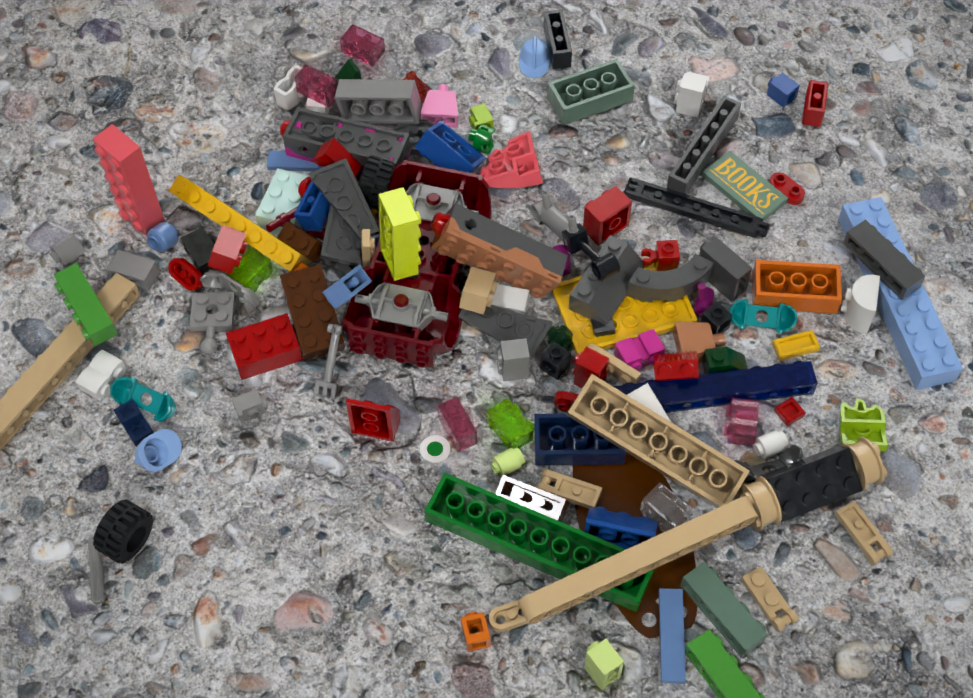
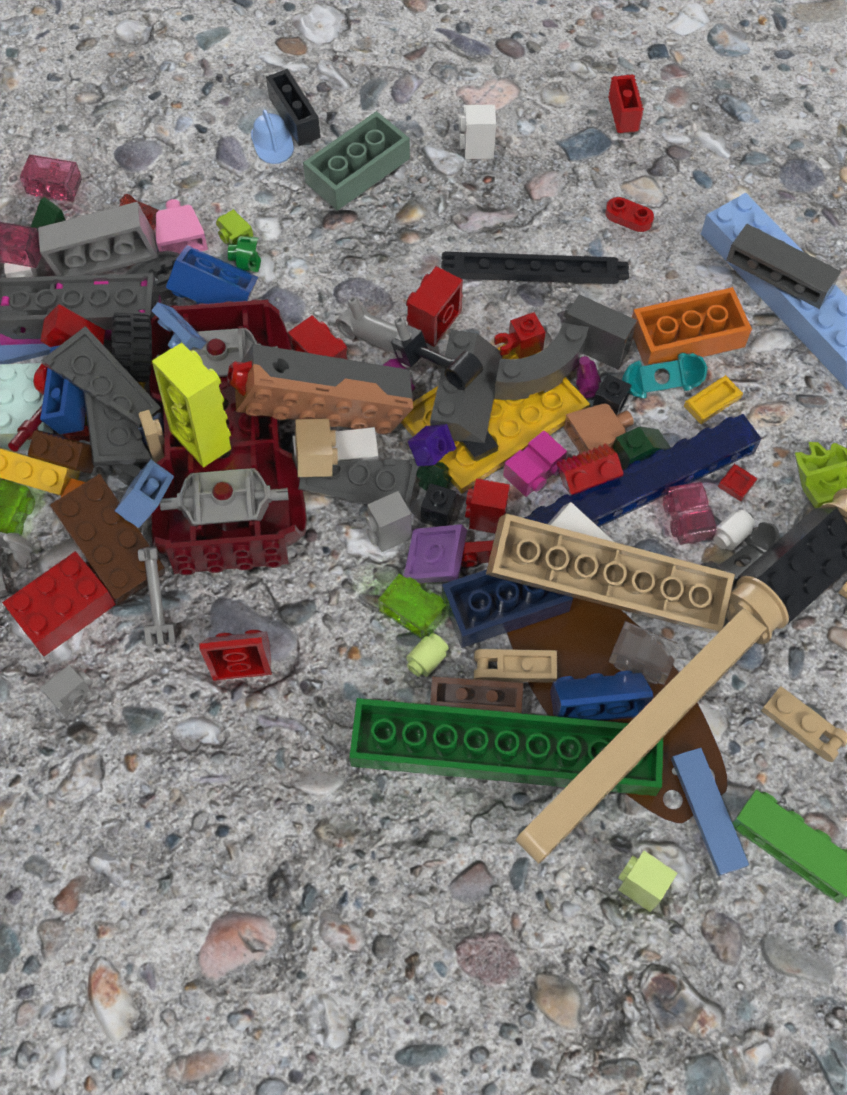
camera: 20 degrees left, 5 degrees up
(413, 184) = (183, 331): none -> medium blue hinge
(435, 448) = (327, 667): white sticker -> none
(457, 424) = (346, 627): clear pink brick -> none
(479, 640) = (470, 879): orange brick -> none
(509, 613) = (504, 855): tan plate -> none
(511, 215) = (317, 339): none -> red brick
(514, 165) = (296, 275): coral brick -> none
(540, 392) = (435, 553): none -> medium lavender tile
(564, 313) = (431, 444): none -> dark purple brick
(618, 368) = (519, 493): tan plate -> none
(704, 145) = (517, 188): dark grey brick -> none
(723, 609) = (760, 757): sand green brick -> none
(744, 186) = (580, 225): sand green tile -> none
(782, 89) = (580, 98): blue brick -> none
(861, 303) = (774, 326): white brick -> none

